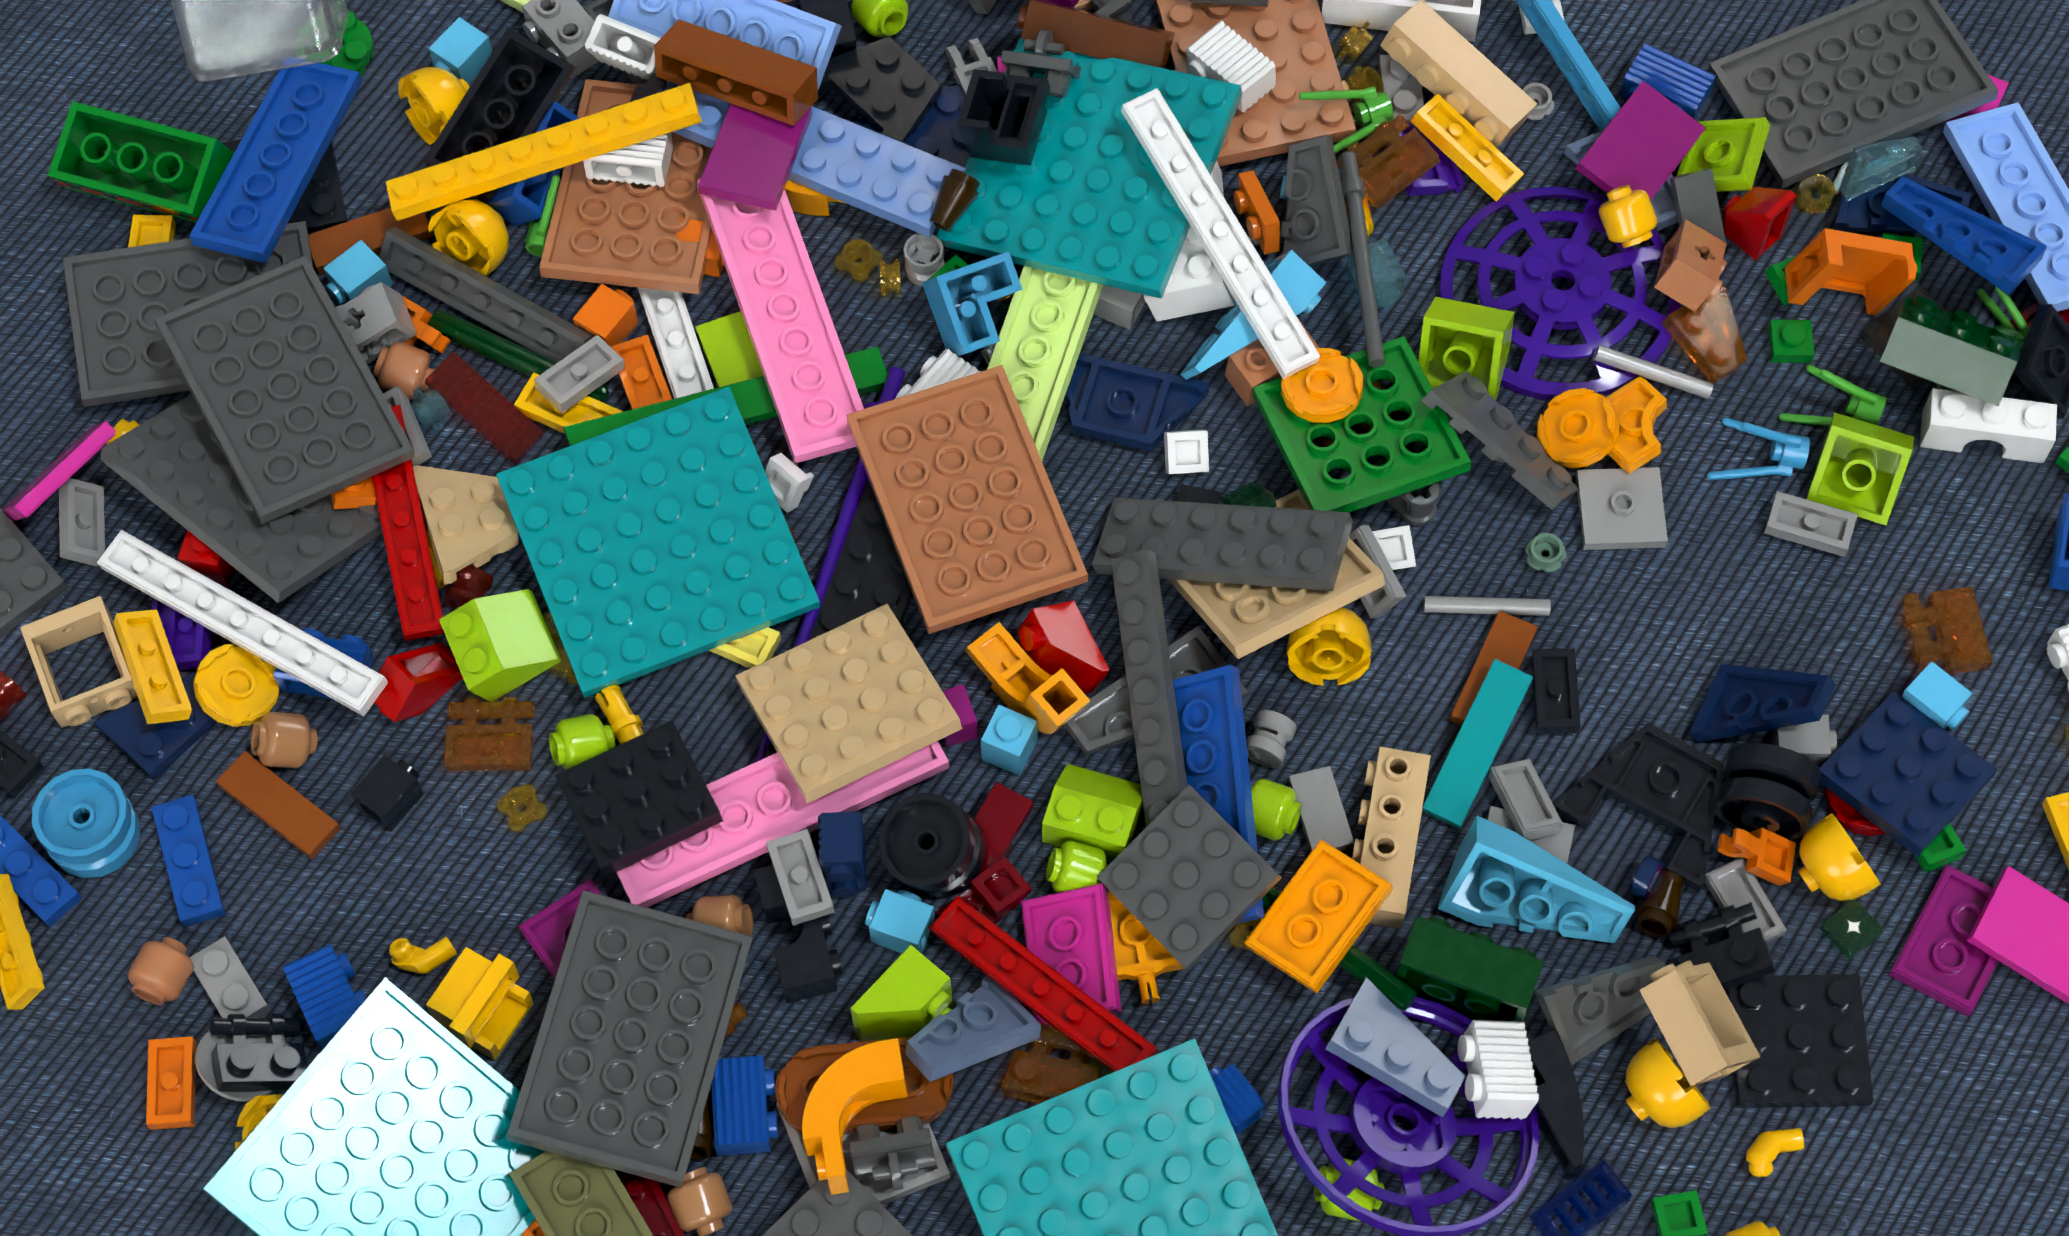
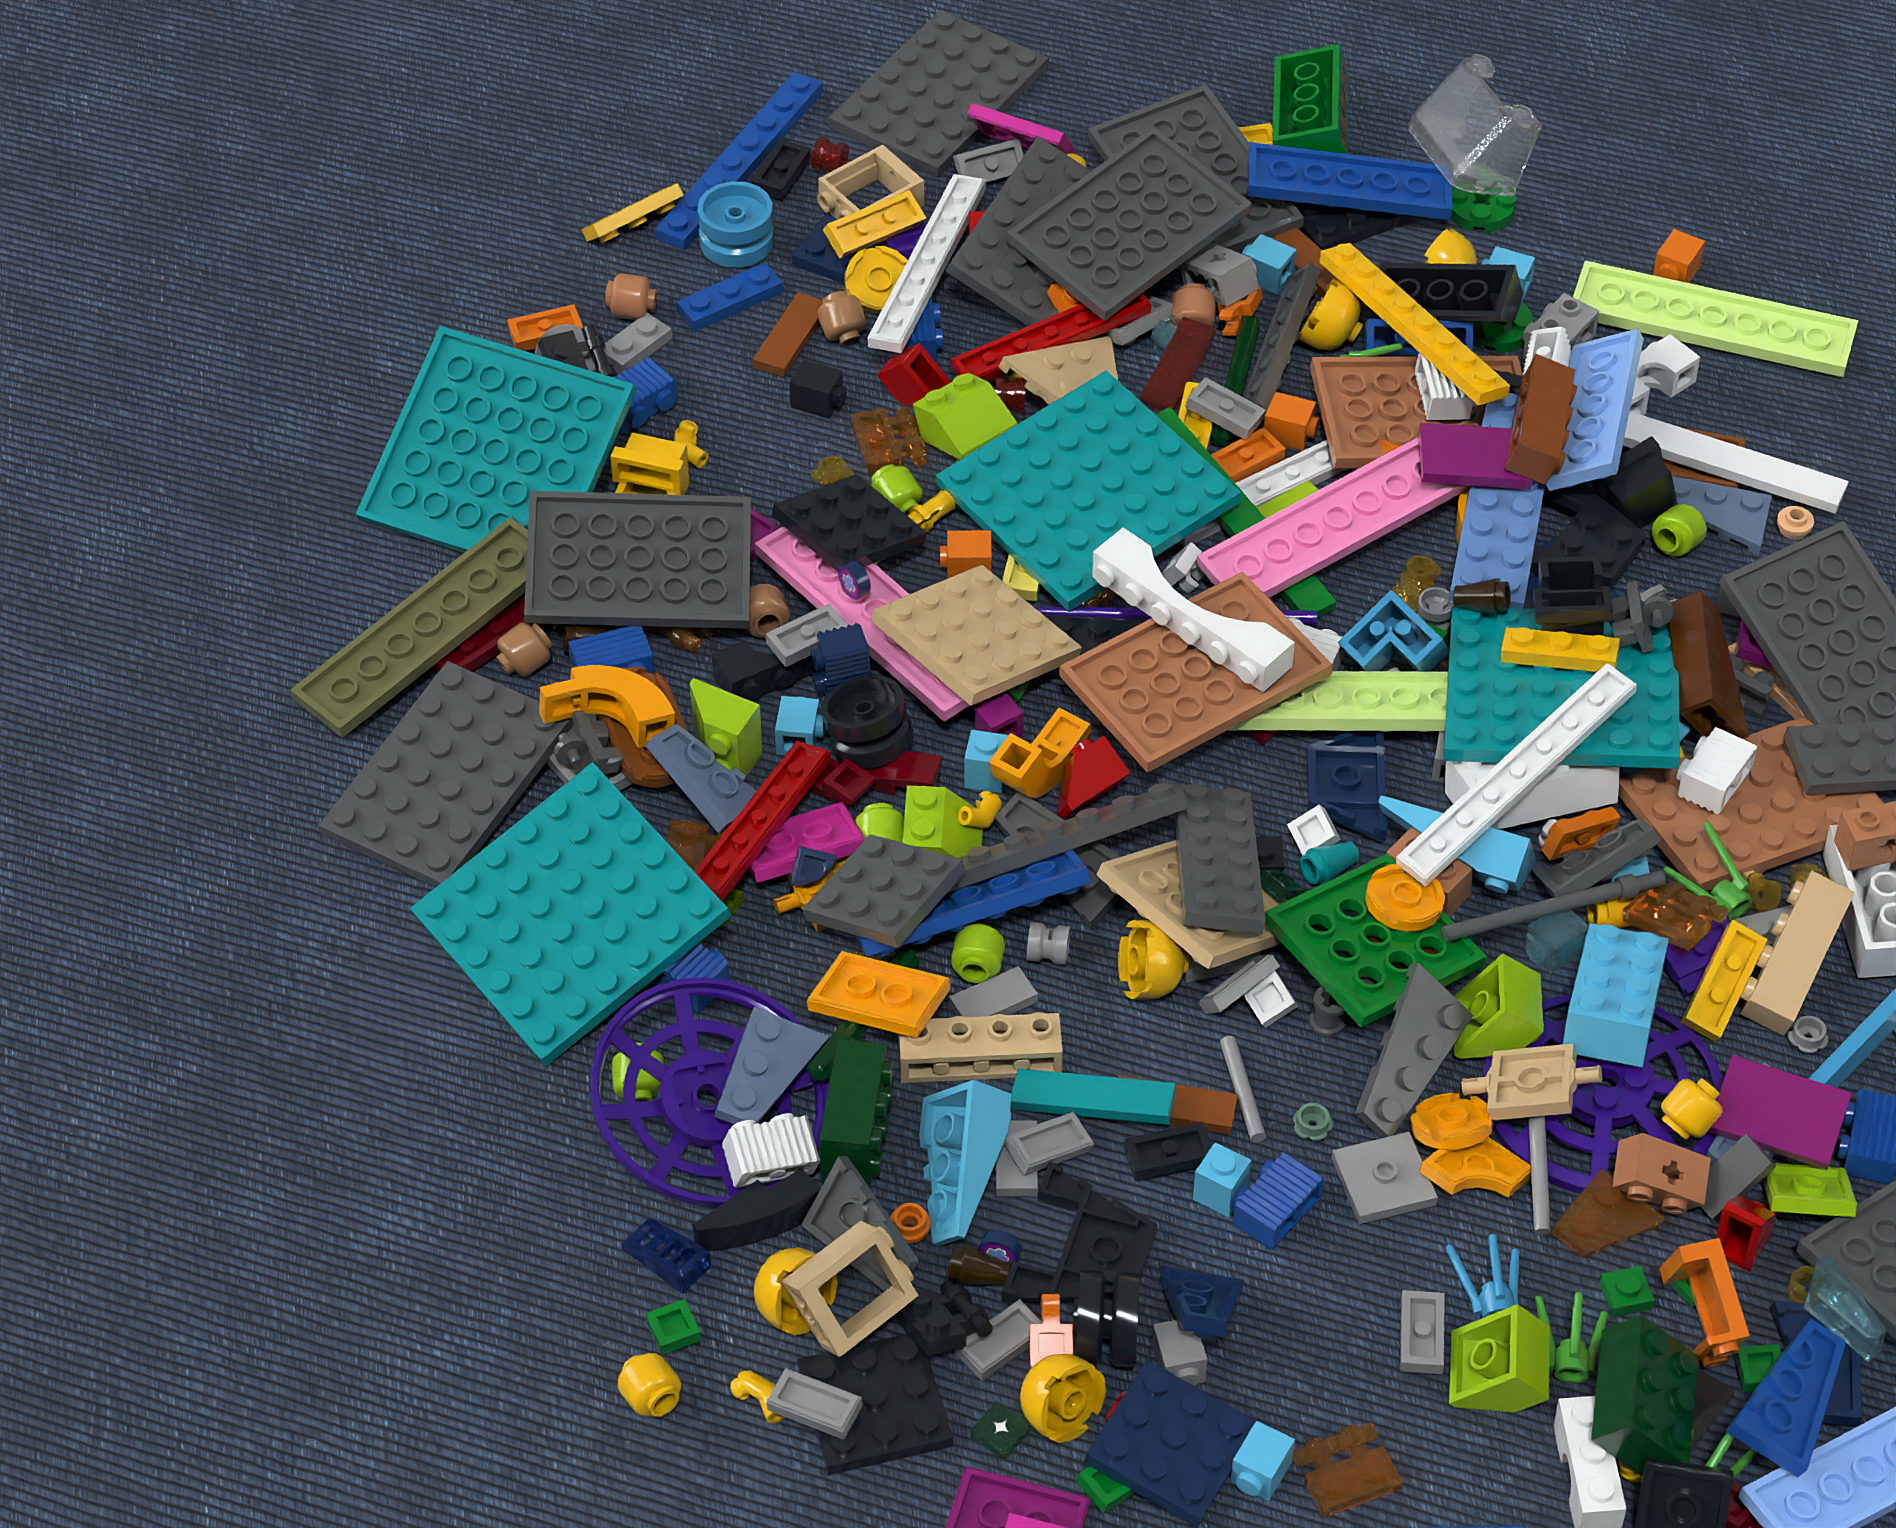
camera: 75 degrees right, 15 degrees down
(702, 690) = (966, 551): none -> orange brick
(741, 807) = (854, 580): none -> dark blue tile
(832, 515) = (1246, 648): none -> white arch
(1056, 150) = (1559, 649): none -> yellow plate
(1085, 762) = (985, 812): none -> yellow arm
(1124, 949) = (810, 866): none -> dark blue tile
(1226, 450) = (1328, 861): none -> teal cone
(1479, 238) = (1615, 994): none -> medium azure brick
(1568, 340) = (1532, 1081): none -> tan plate
(1593, 946) = (911, 1214): none -> orange plate
(1607, 650) = (1220, 1178): none -> medium azure brick
(1637, 607) = (1277, 1199): none -> blue brick
(1810, 1094) = (814, 1403): none -> light grey tile

